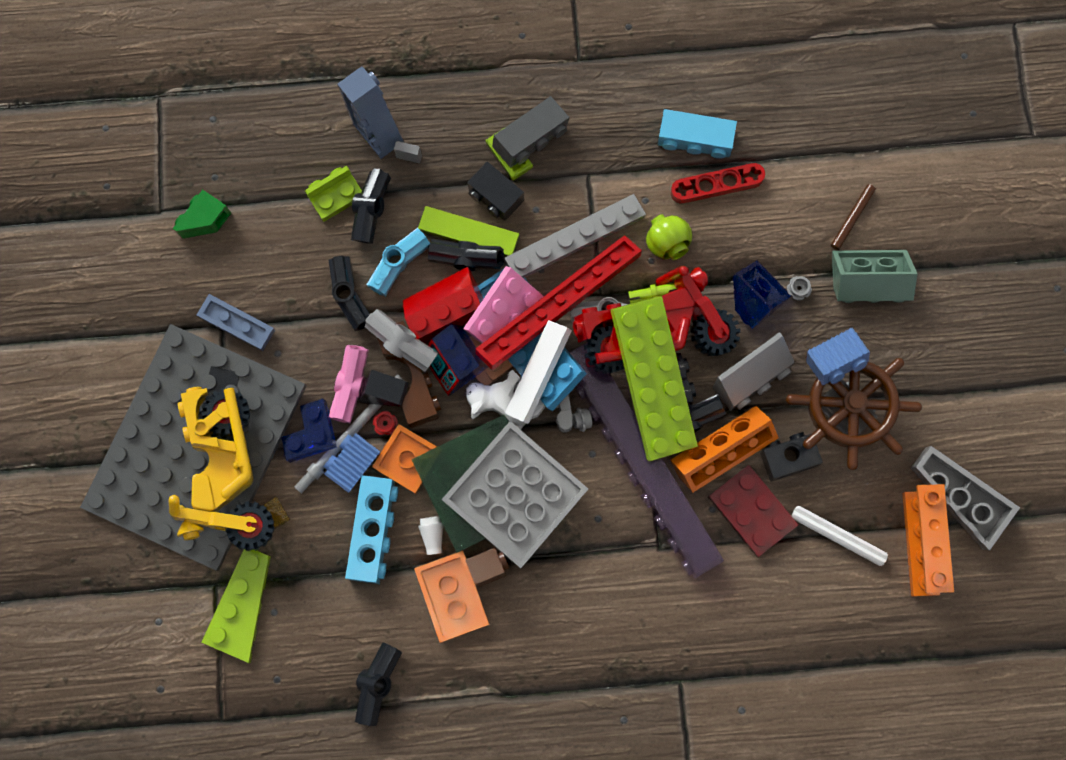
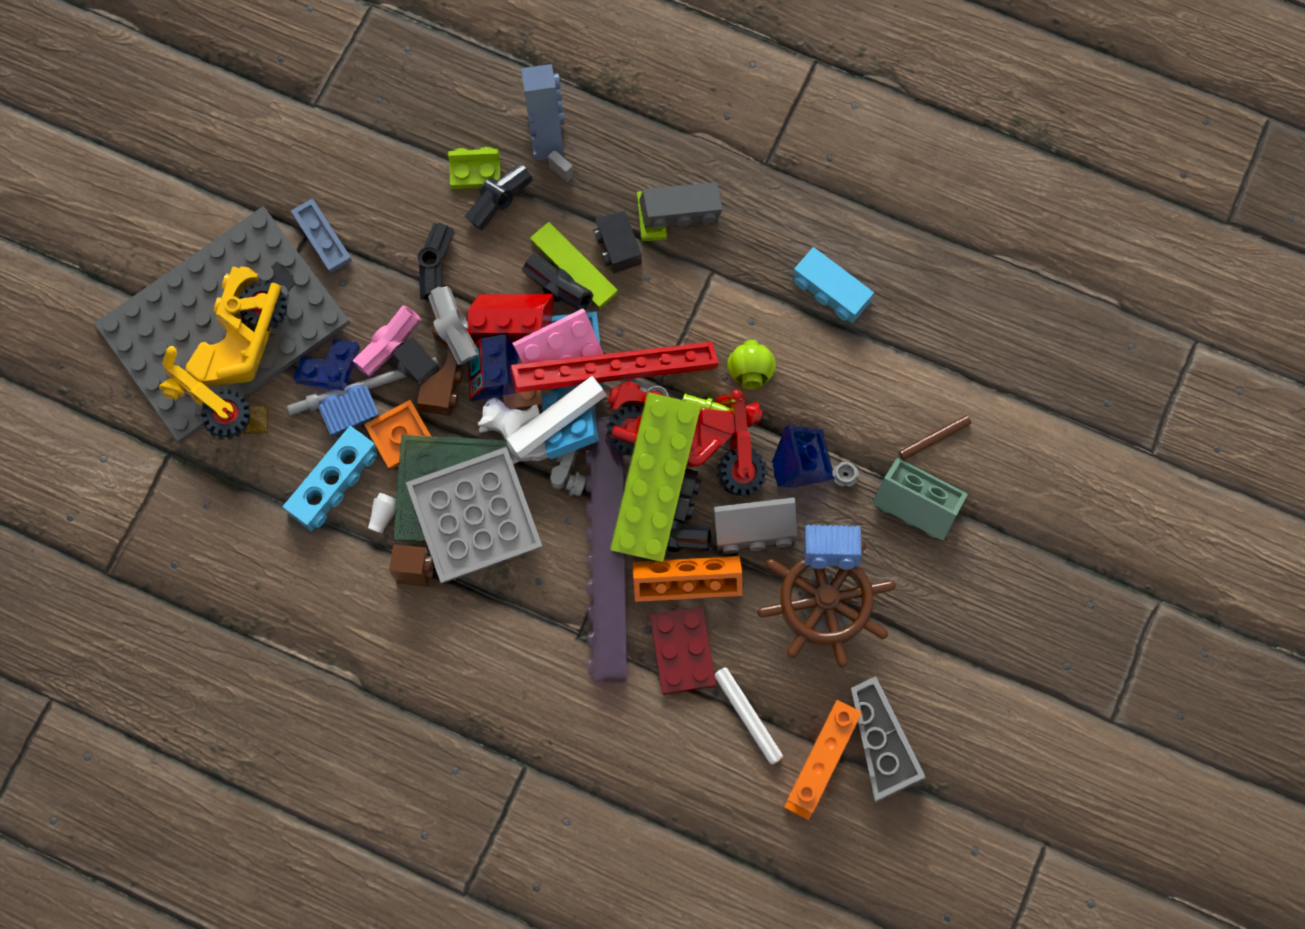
camera: 25 degrees right, 5 degrees down
(202, 217) = (346, 128): green slope -> none
(237, 614) = (173, 488): lime wing -> none
(375, 684) = (246, 623): black piece -> none
(378, 423) = (396, 387): red plate -> none
(387, 272) = (478, 262): medium azure piece -> none
(451, 596) = (365, 577): orange plate -> none
(576, 236) = (666, 320): light grey plate -> none
(716, 179) = (827, 336): red beam -> none
(779, 467) = (730, 626): black brick -> none

